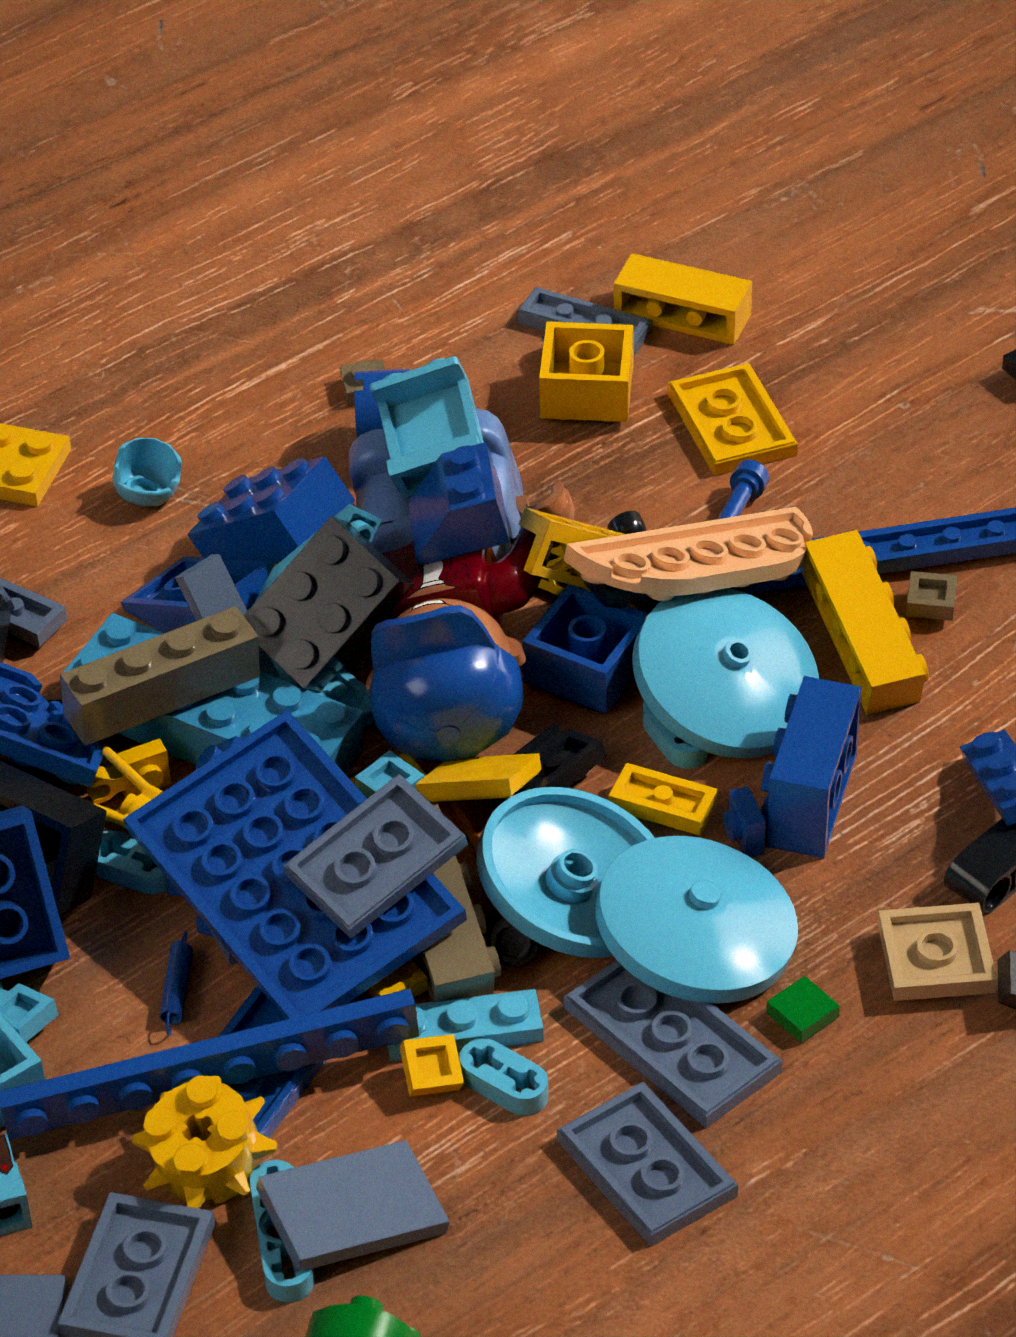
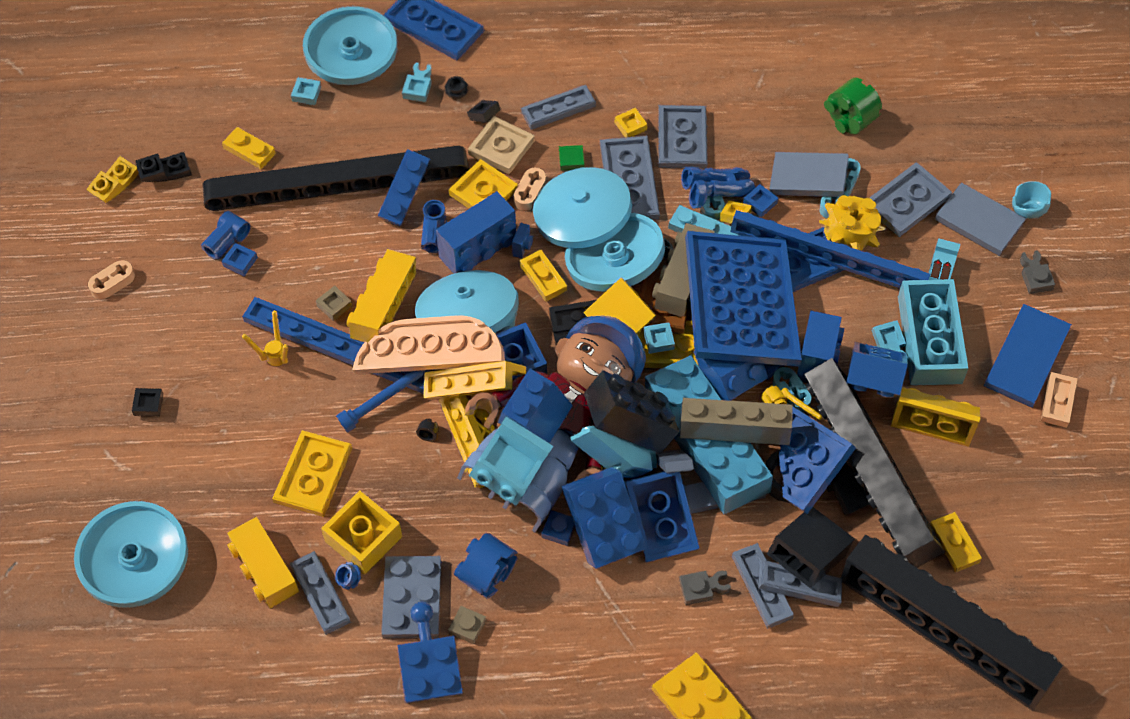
camera: 145 degrees left, 15 degrees up
(85, 565) = (699, 588): none -> dark grey plate
(118, 902) = (820, 342): none -> blue brick
(146, 471) = (633, 619): medium azure hair -> none
(176, 982) = (820, 307): blue piece -> none
(372, 314) = (429, 665): none -> blue plate
(375, 856) = (708, 268): sand blue tile -> none
(406, 1115) = (761, 200): none -> blue plate
(493, 377) = (406, 583): none -> sand blue plate
(497, 1111) = (715, 183): none -> blue piece
(754, 1118) = (630, 123): none -> yellow plate
(827, 916) = (525, 187): none -> light nougat beam
(846, 218) = (131, 554): none -> medium azure dish
(888, 866) = (480, 183): none -> yellow plate
(908, 769) = (430, 224): none -> blue piece
(914, 1085) = (558, 107): none -> sand blue tile
(941, 495) = (274, 351): none -> yellow plant

